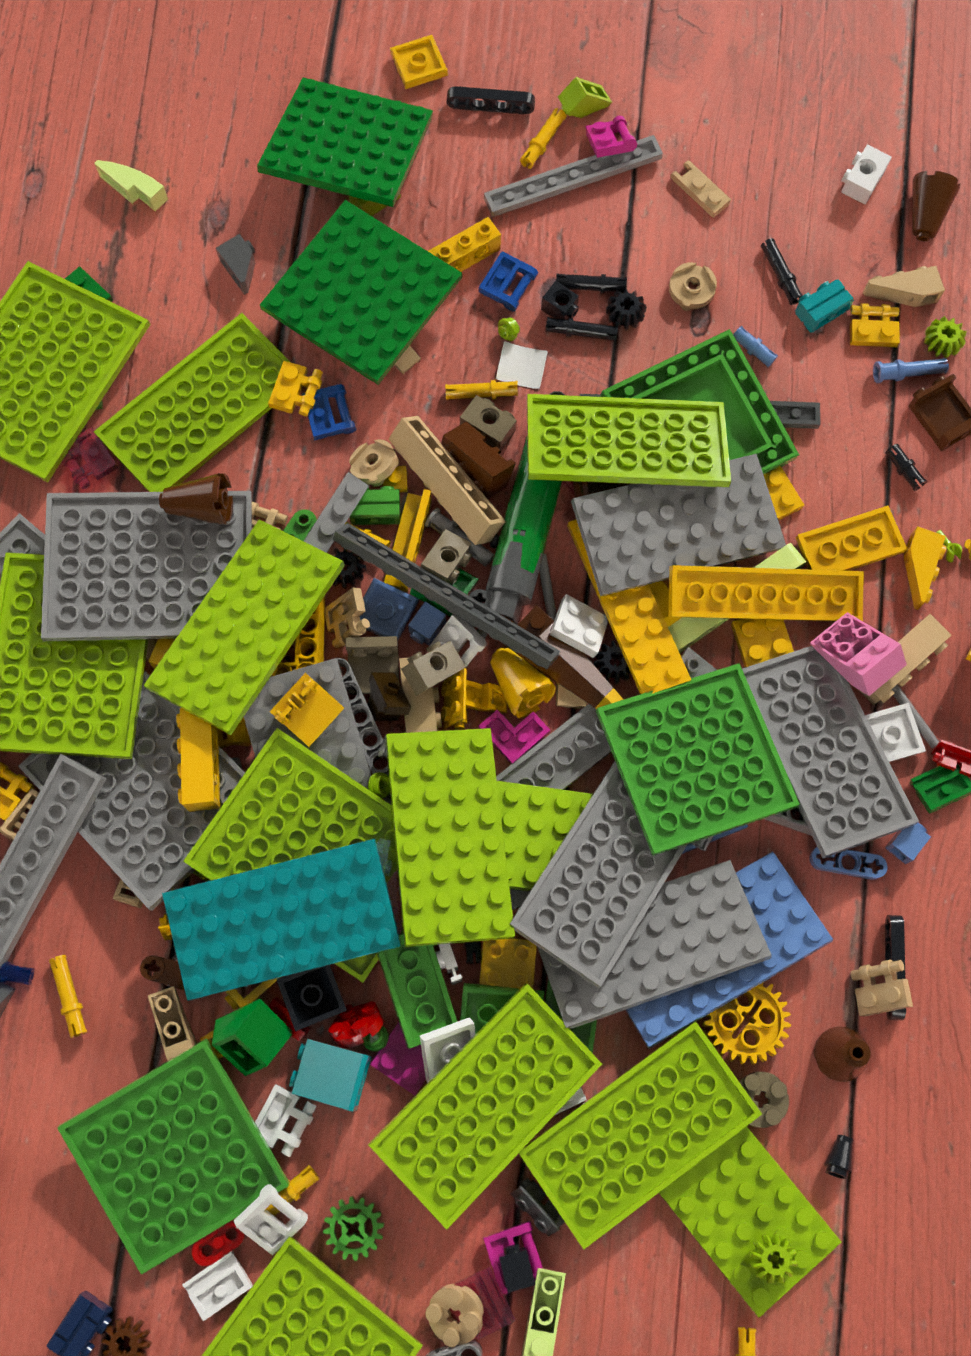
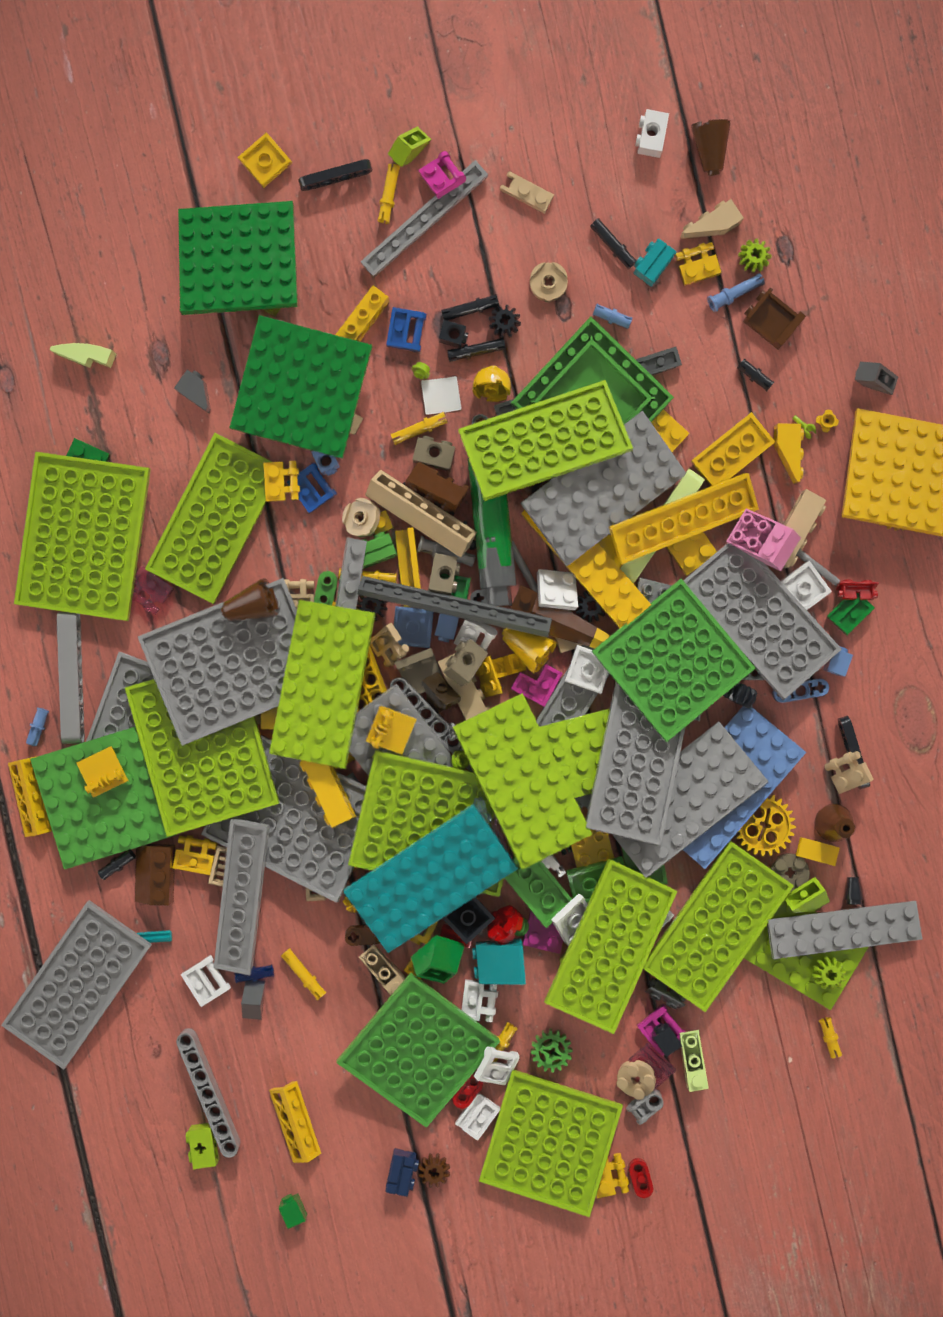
camera: 15 degrees left, 15 degrees up
(357, 397) = (328, 470): none -> medium blue brick
(581, 735) = (586, 670): none -> white plate
(585, 369) = (492, 383): none -> yellow cylinder
(769, 836) = (742, 695): none -> black gear
(776, 1139) = (807, 897): none -> lime slope
(807, 1082) = (817, 851): none -> yellow slope
(812, 1204) = (844, 929): none -> light grey plate

